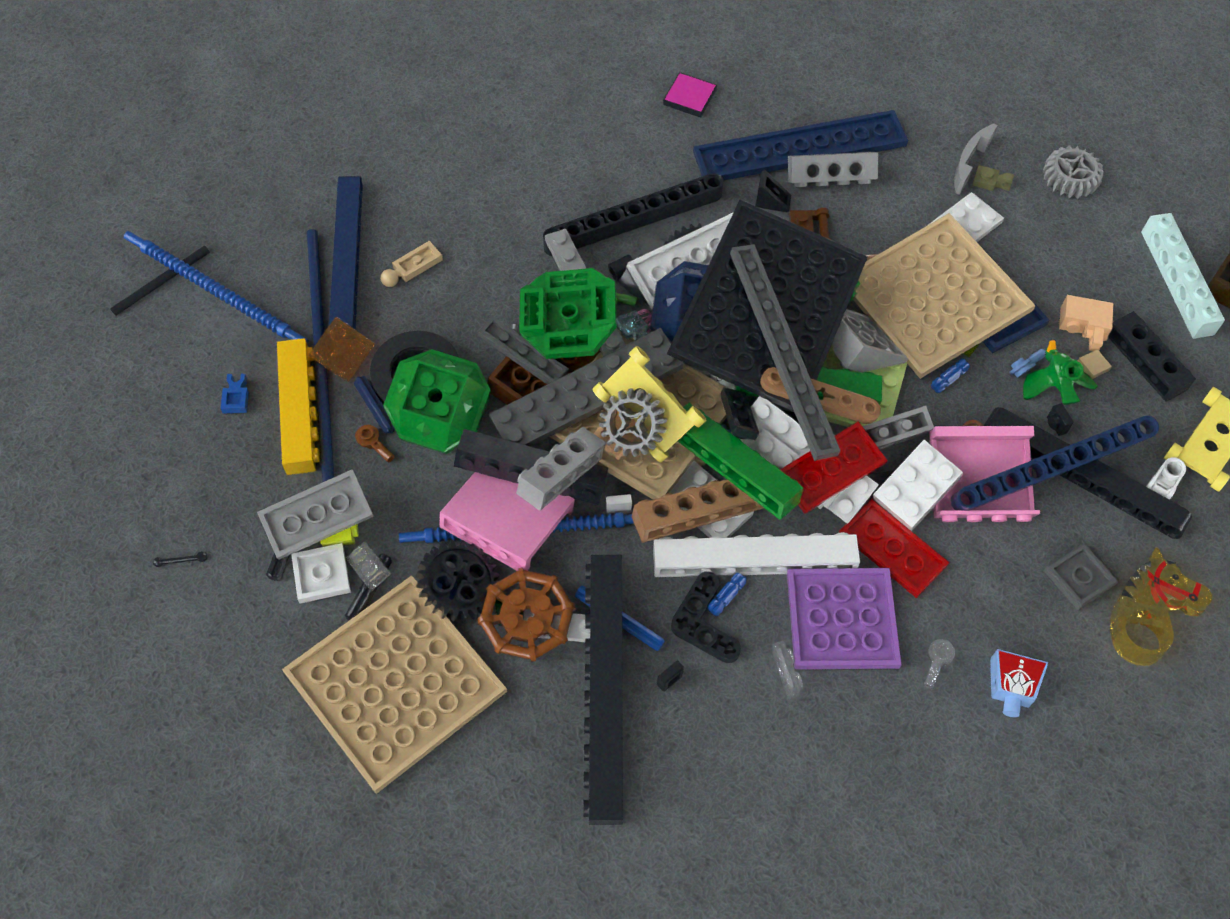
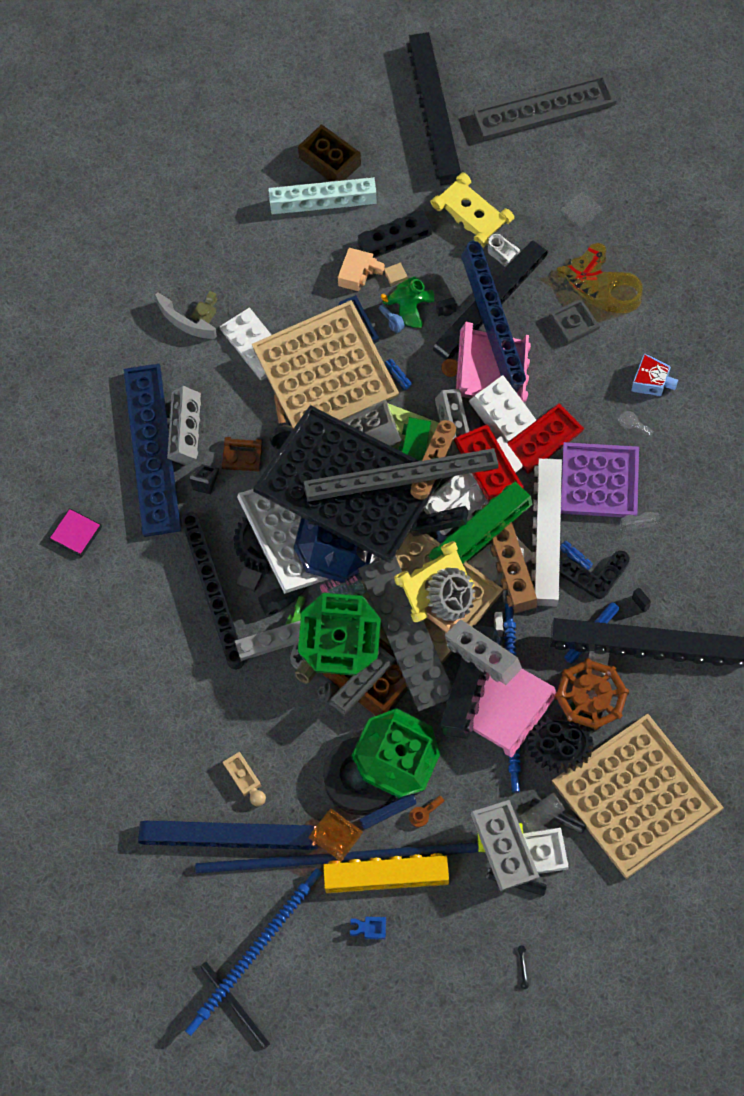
camera: 80 degrees left, 5 degrees up
(1086, 175) = (209, 253): light grey gear -> none

